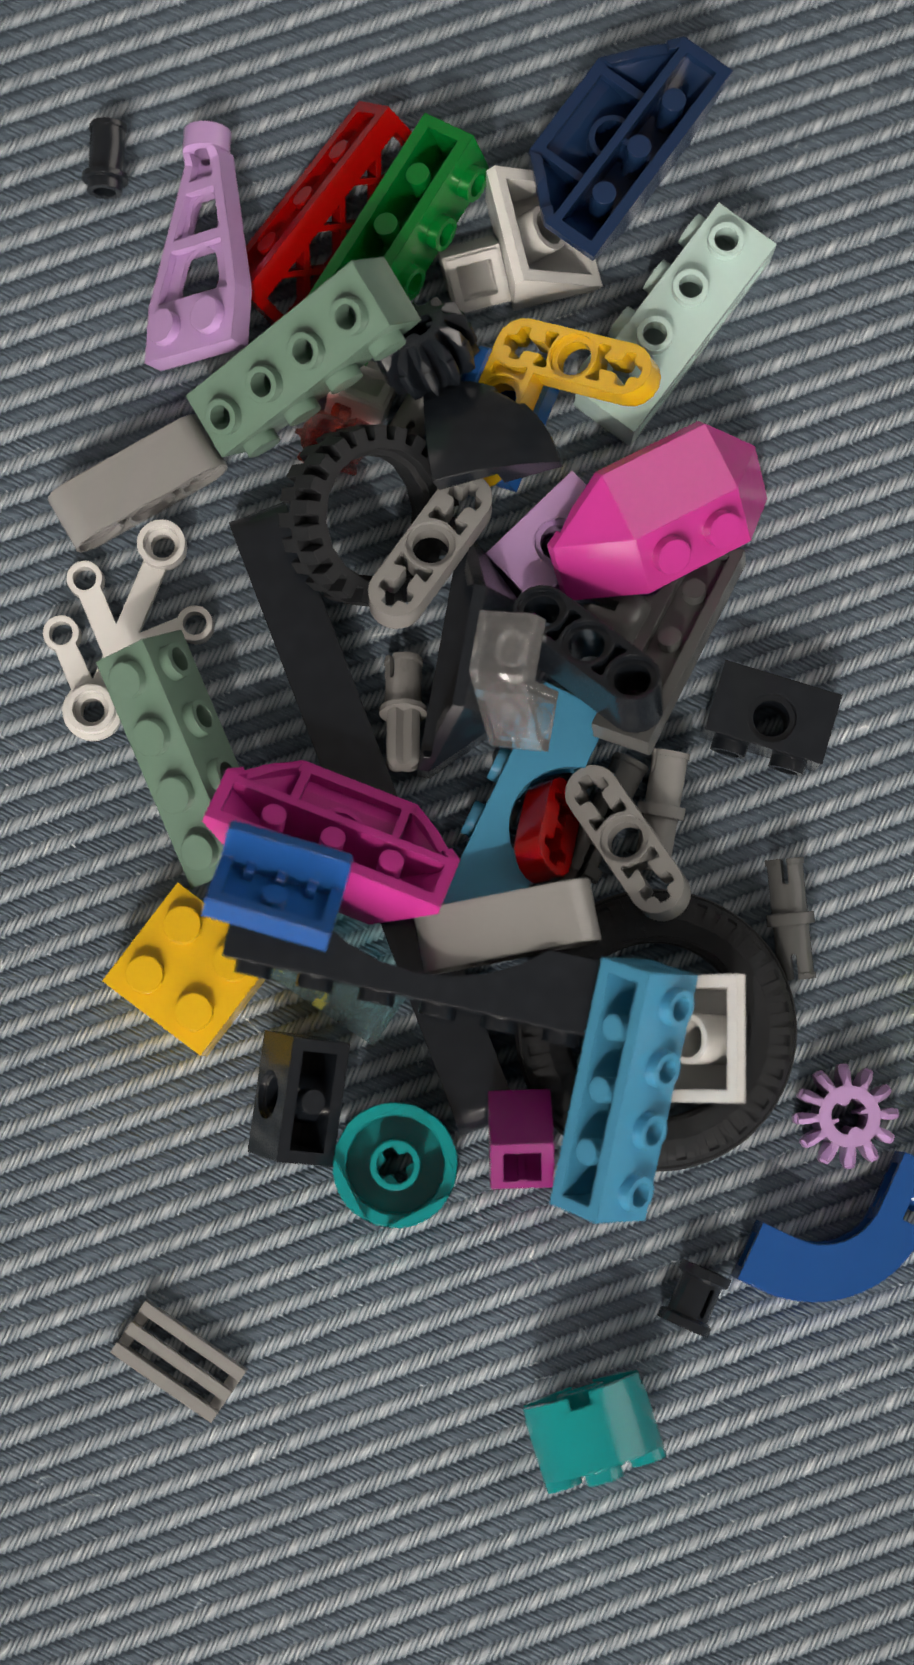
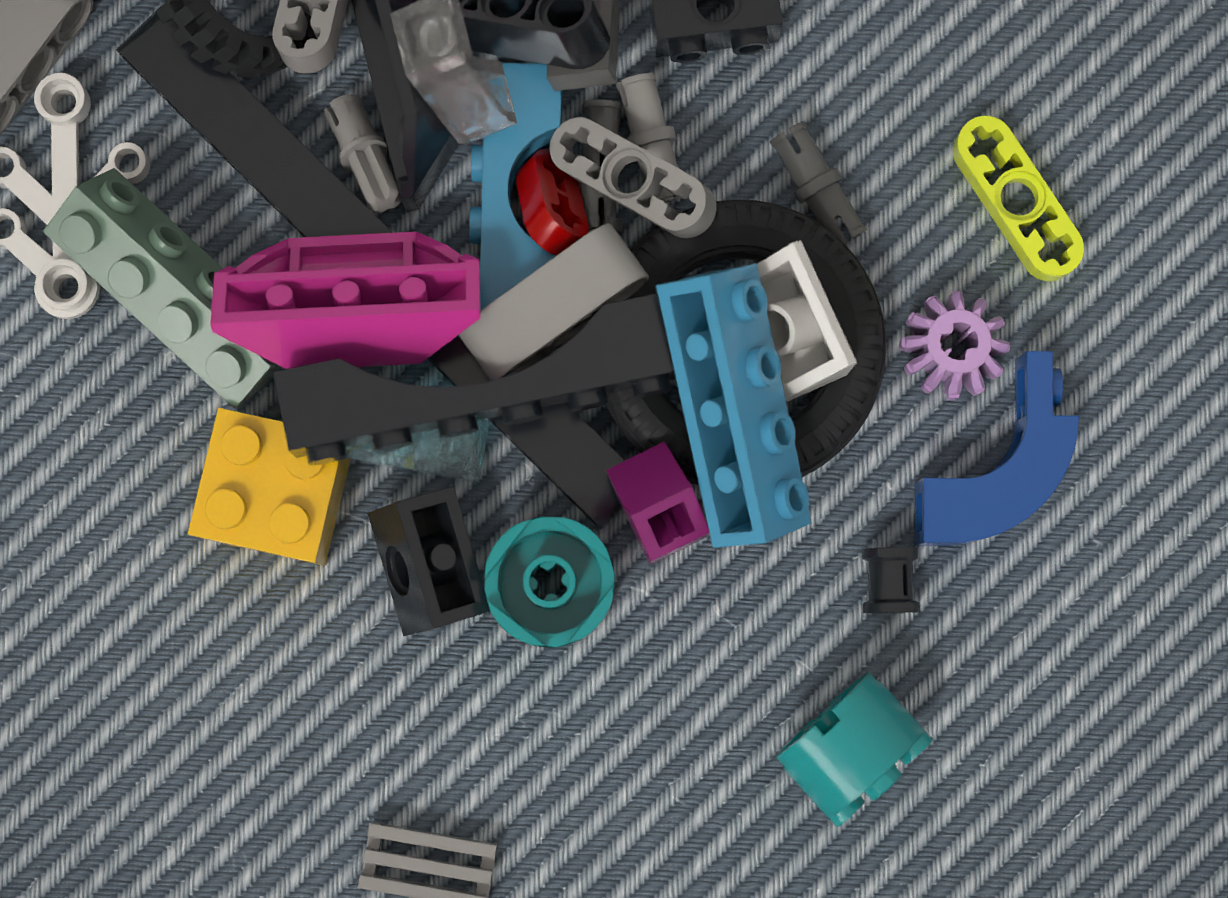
camera: 25 degrees left, 0 degrees up
(278, 885) = (311, 355): blue bracket -> none

